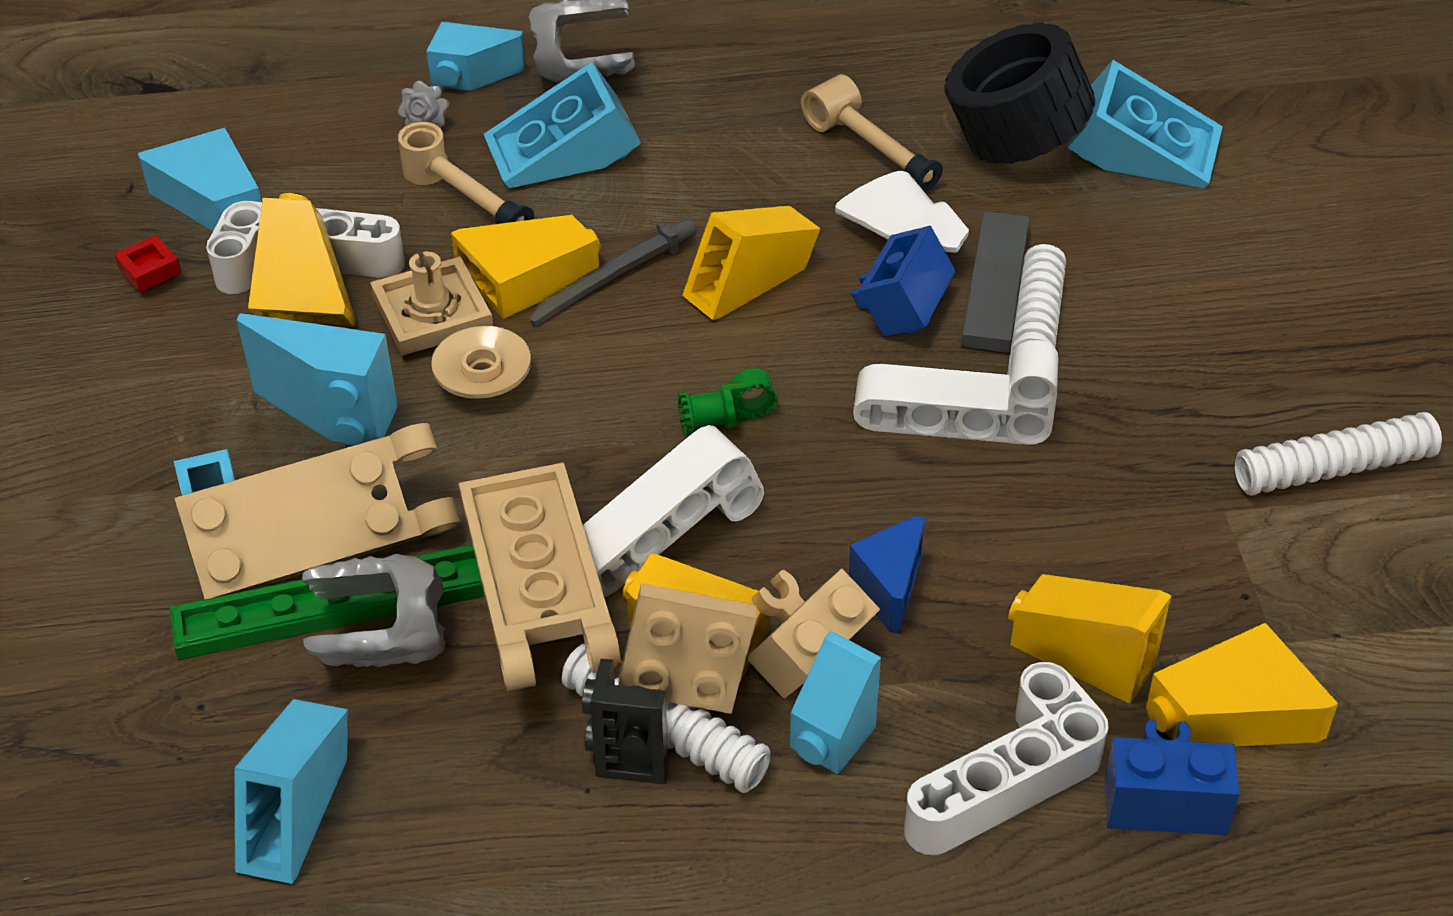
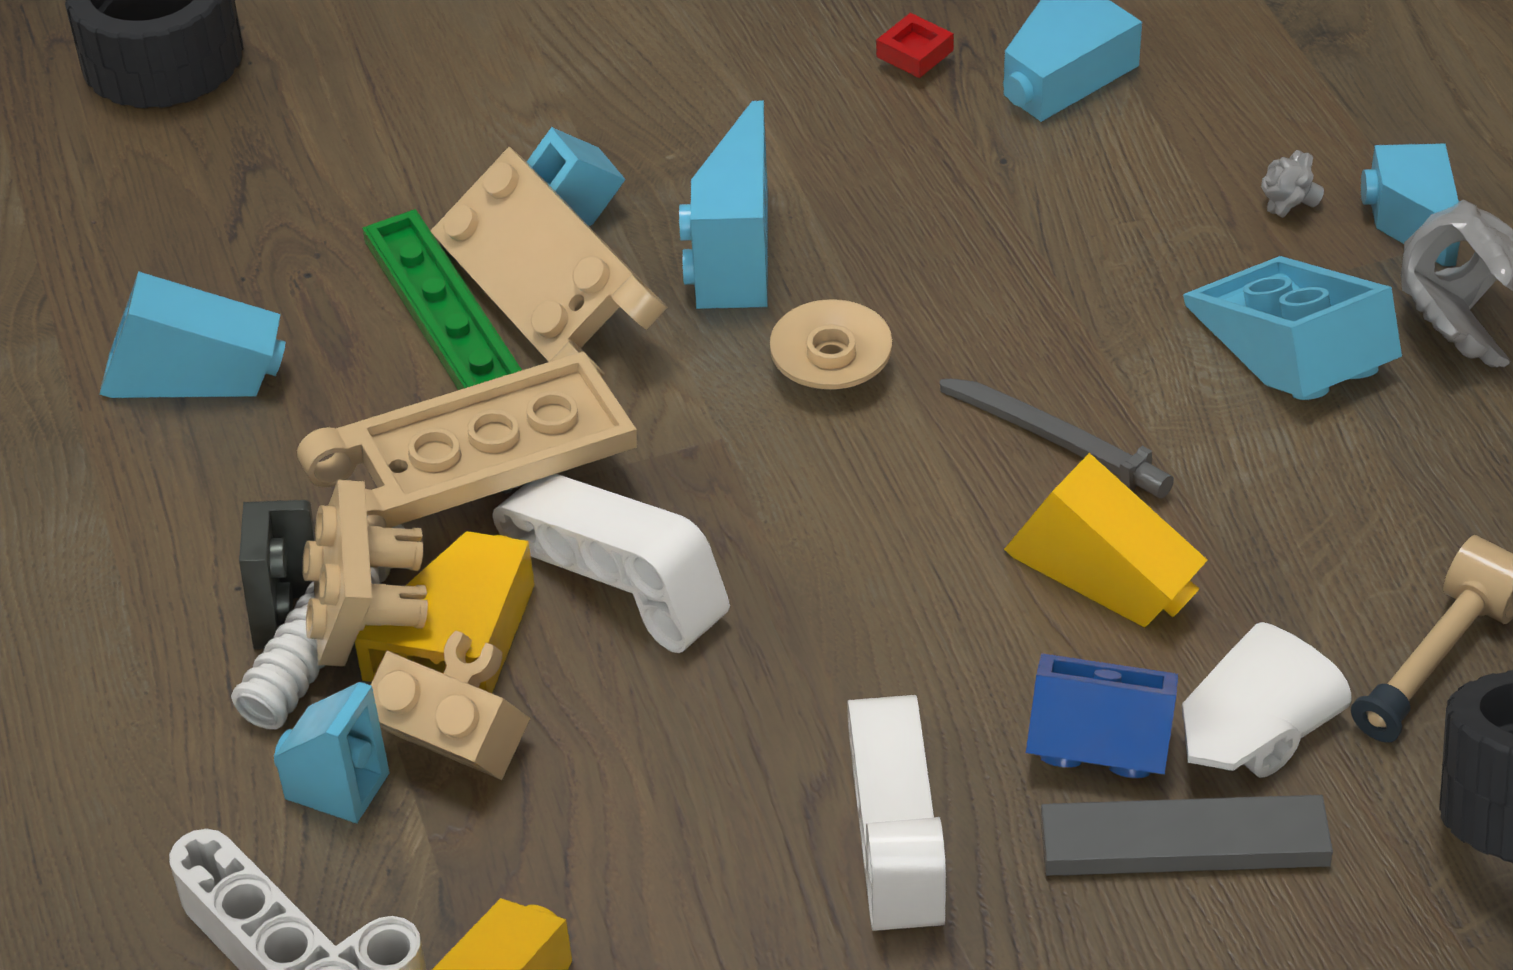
camera: 80 degrees right, 0 degrees up
(296, 266) = (917, 146): yellow slope -> none
(361, 243) = (985, 110): white beam -> none
(416, 629) = (423, 329): light grey piece -> none
(426, 296) = (923, 269): tan plate -> none
(427, 163) = (1191, 218): tan piece -> none
(526, 260) = (1023, 341): yellow slope -> none
(726, 404) = (828, 578): green connector -> none
(887, 568) = (572, 785): blue slope -> none
(1039, 296) = (1096, 884): white piece -> none

